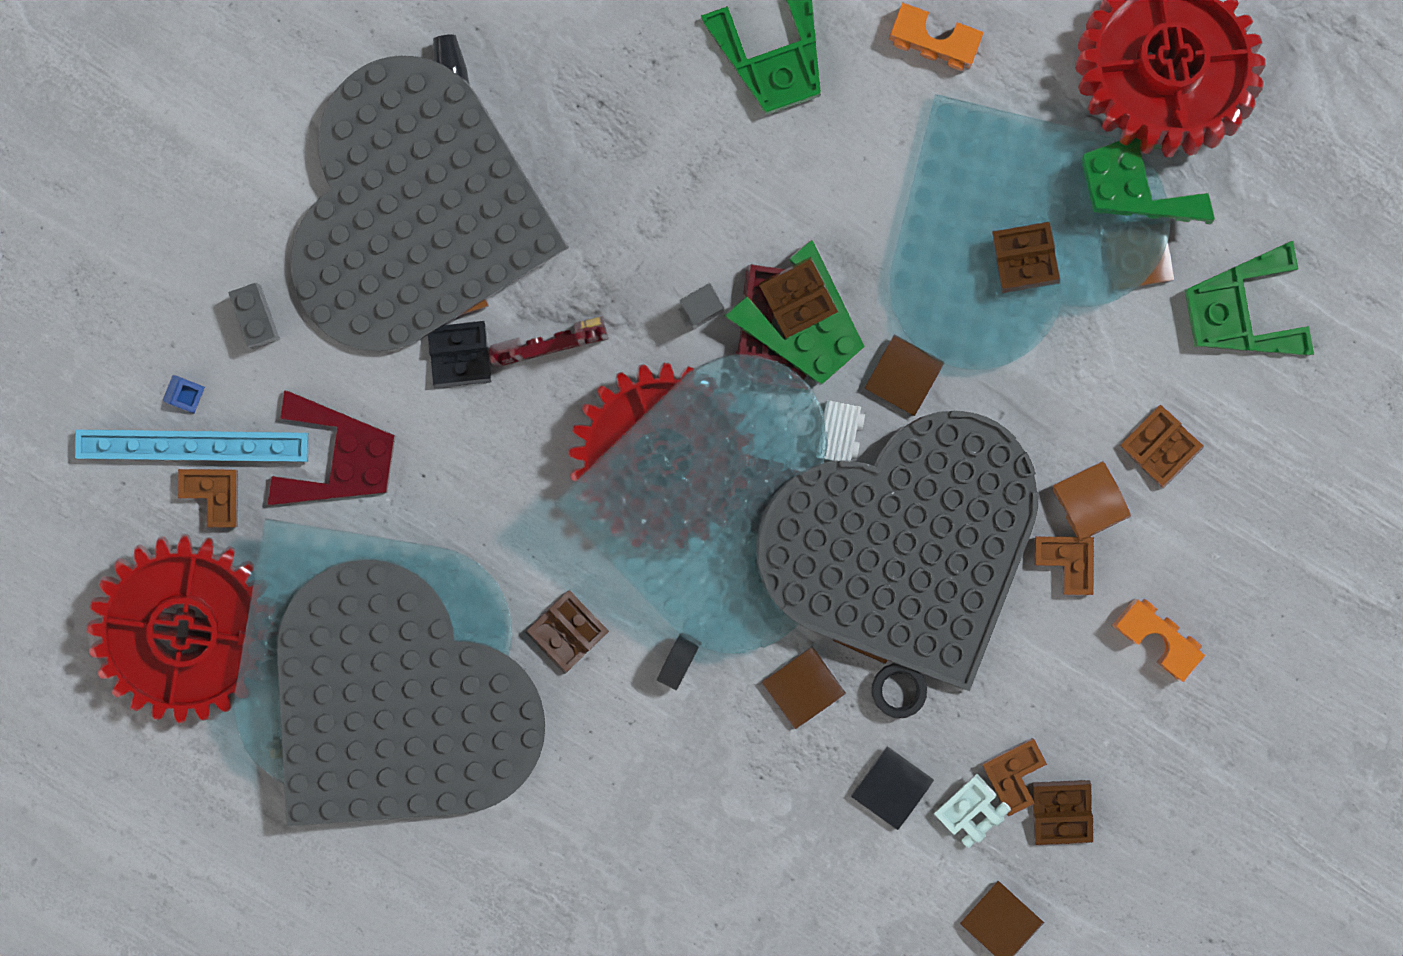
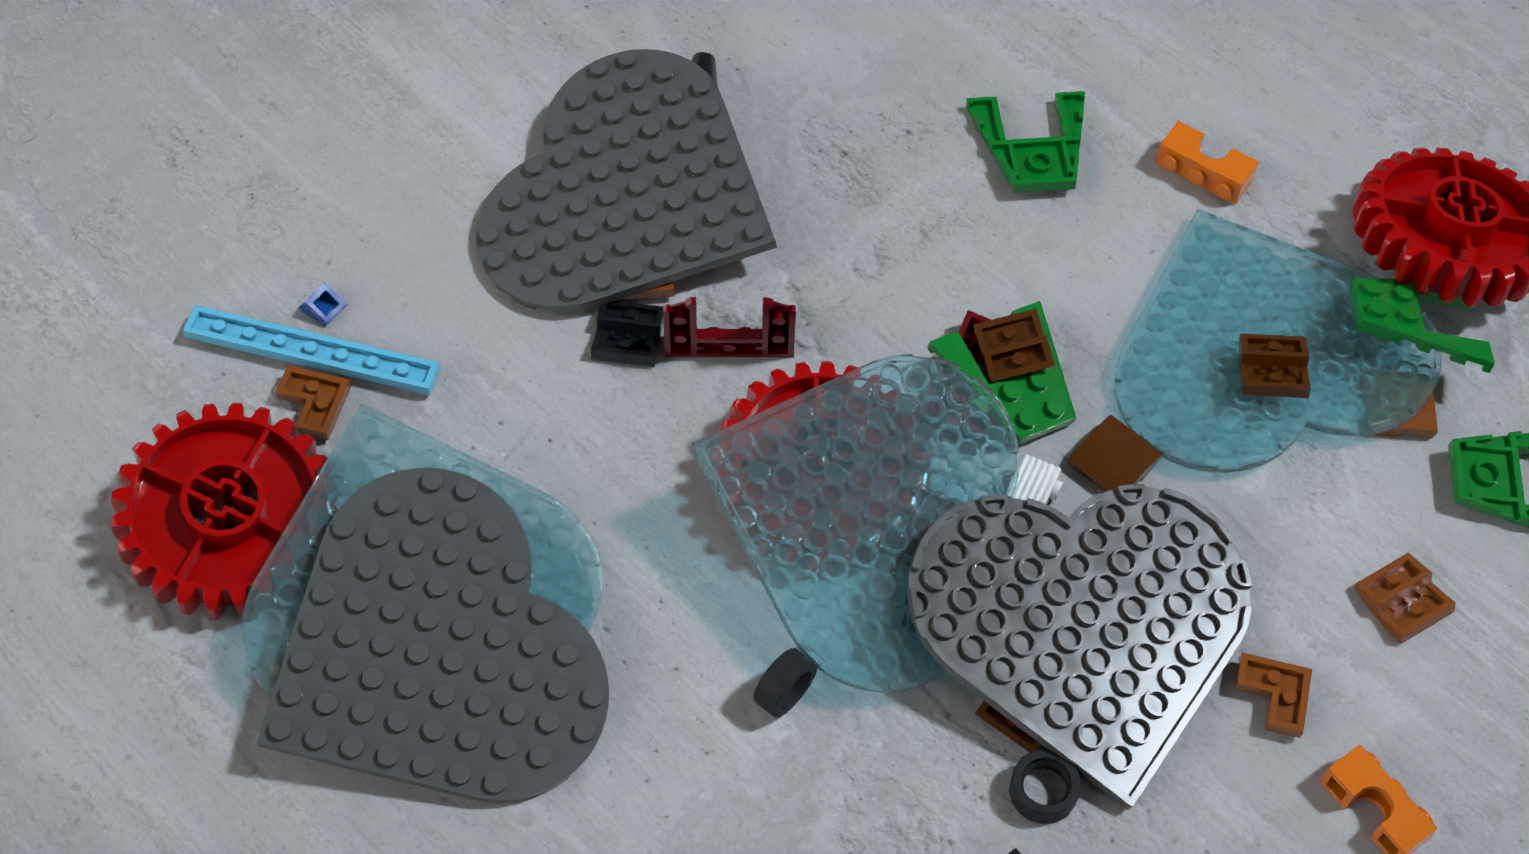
camera: 10 degrees right, 30 degrees down
(254, 315) = (424, 246): dark grey piece -> none
(359, 458) = (486, 405): dark red wing -> none
(567, 631) = (661, 631): reddish brown slope -> none
(700, 306) = (904, 329): dark grey piece -> none
(803, 687) = (928, 756): reddish brown slope -> none
(1091, 501) = (1314, 631): dark orange slope -> none

